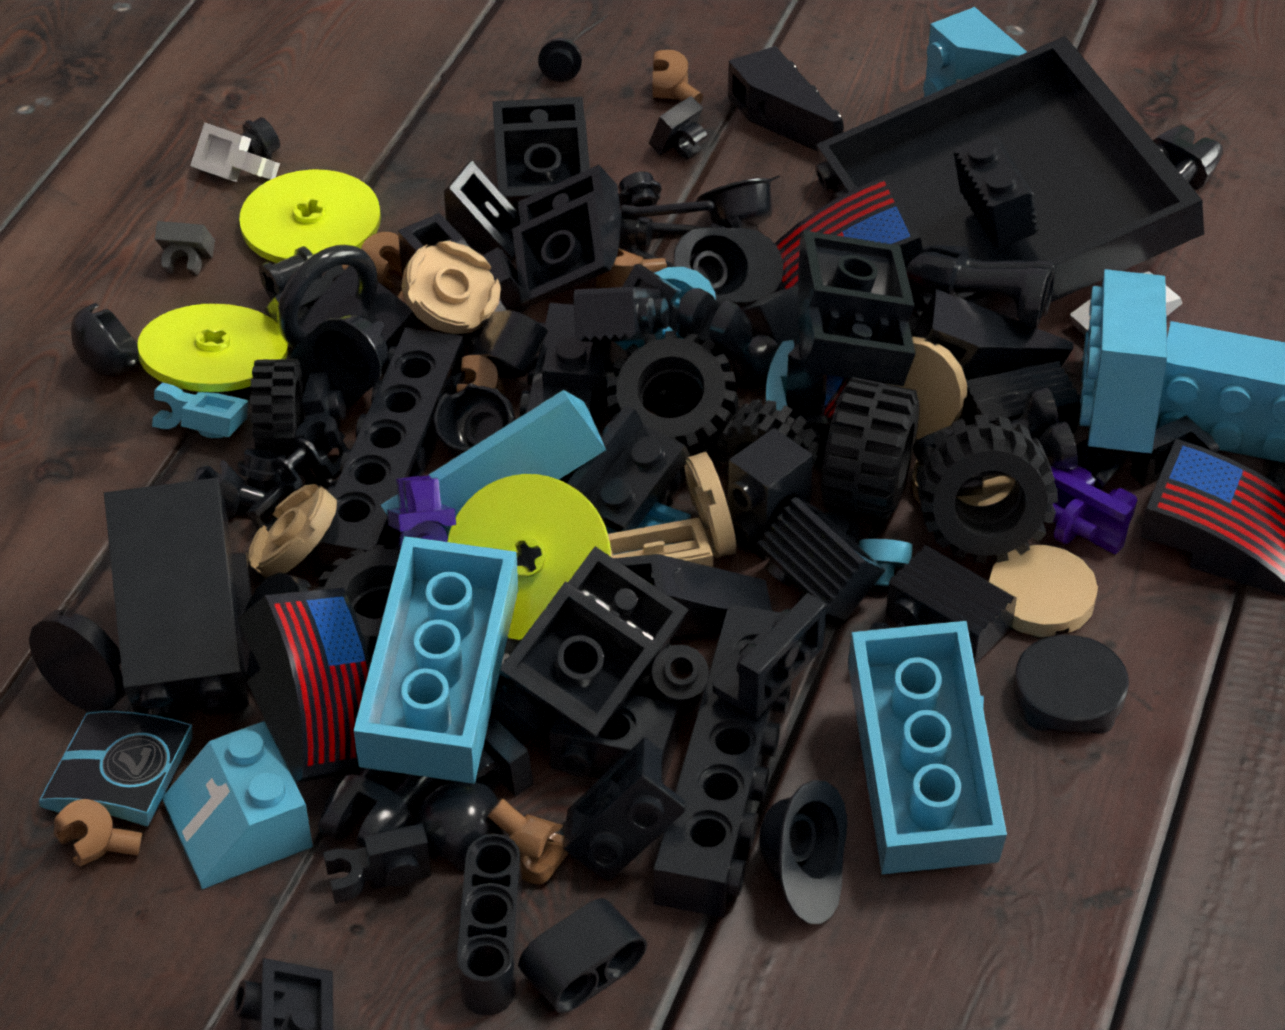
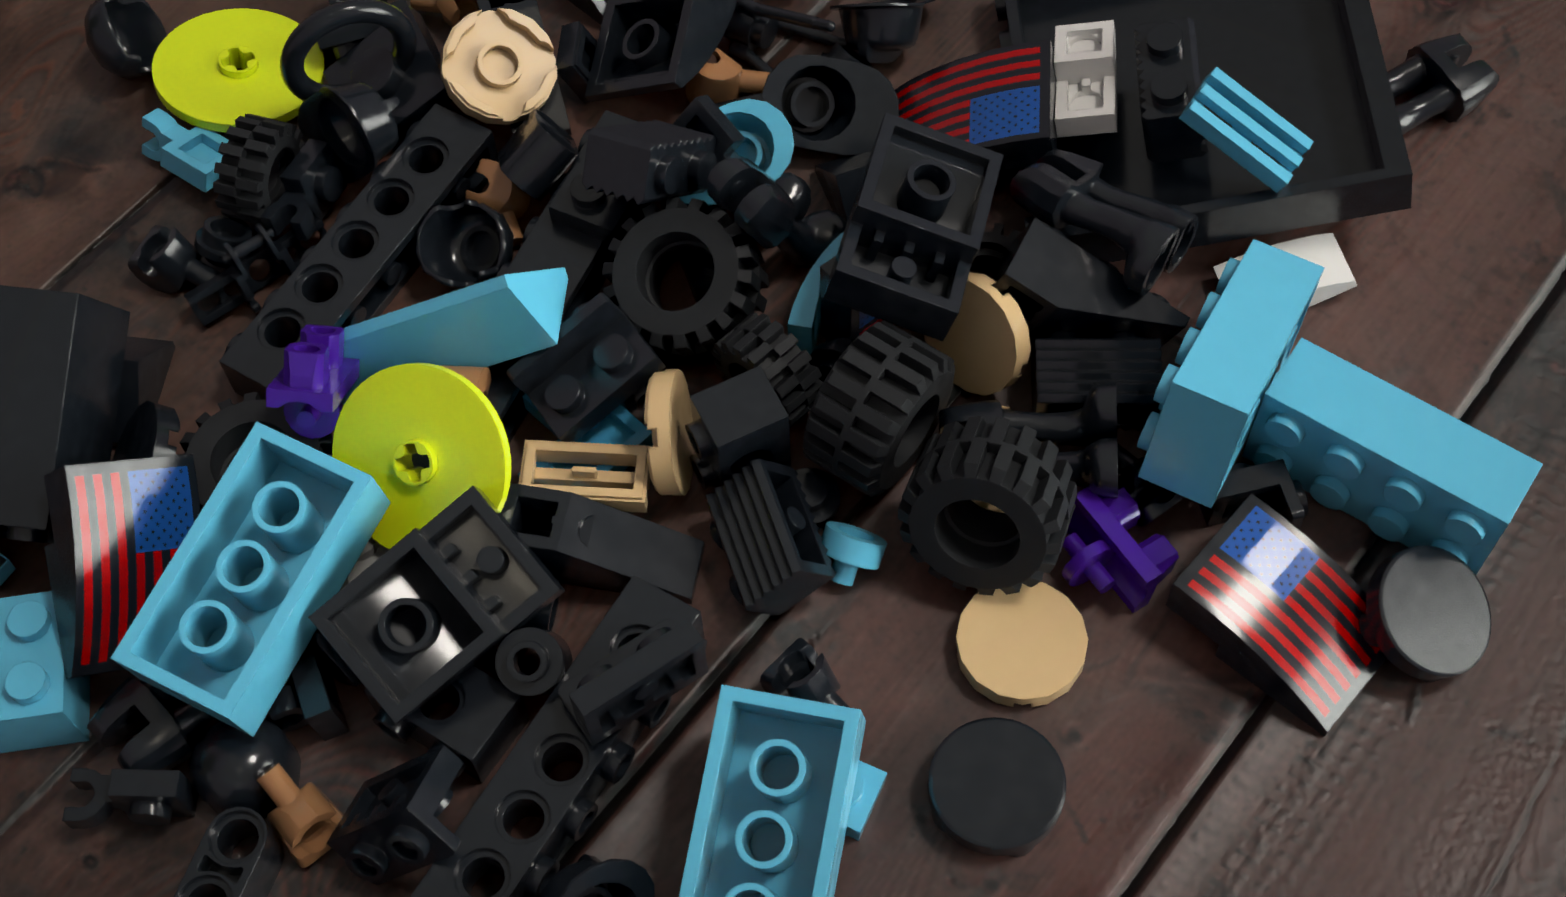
camera: 20 degrees right, 15 degrees up
(299, 528) = (209, 343): tan tile -> none
(927, 199) = (1085, 79): none -> white slope
(942, 591) = (897, 639): black brick -> none
(1069, 196) = (1250, 123): none -> medium azure tile

